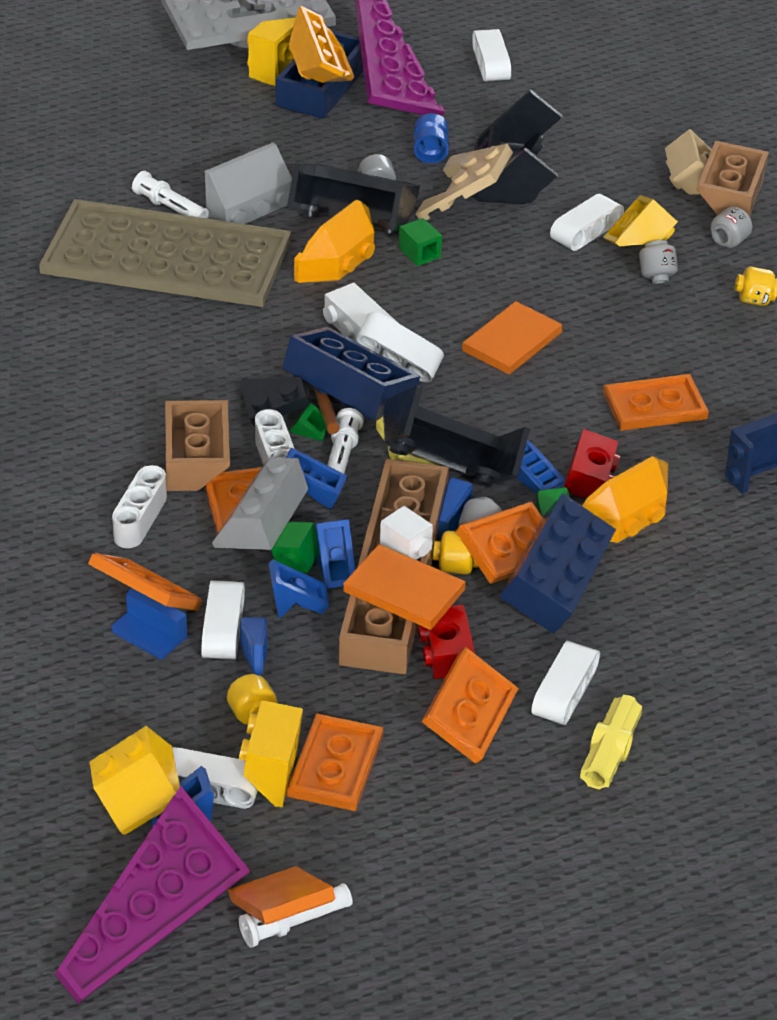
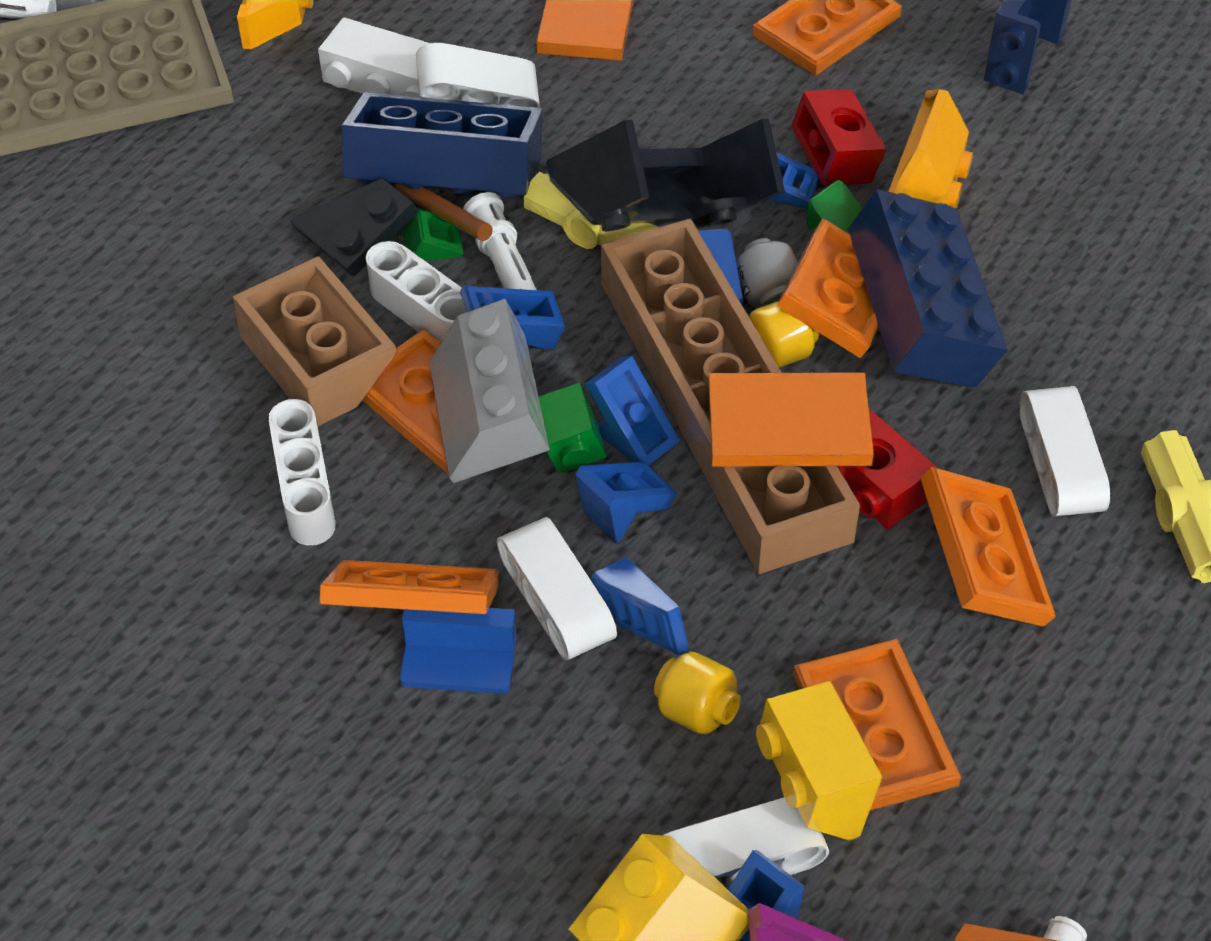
camera: 30 degrees left, 10 degrees up
(406, 533) = (738, 340): white brick -> none

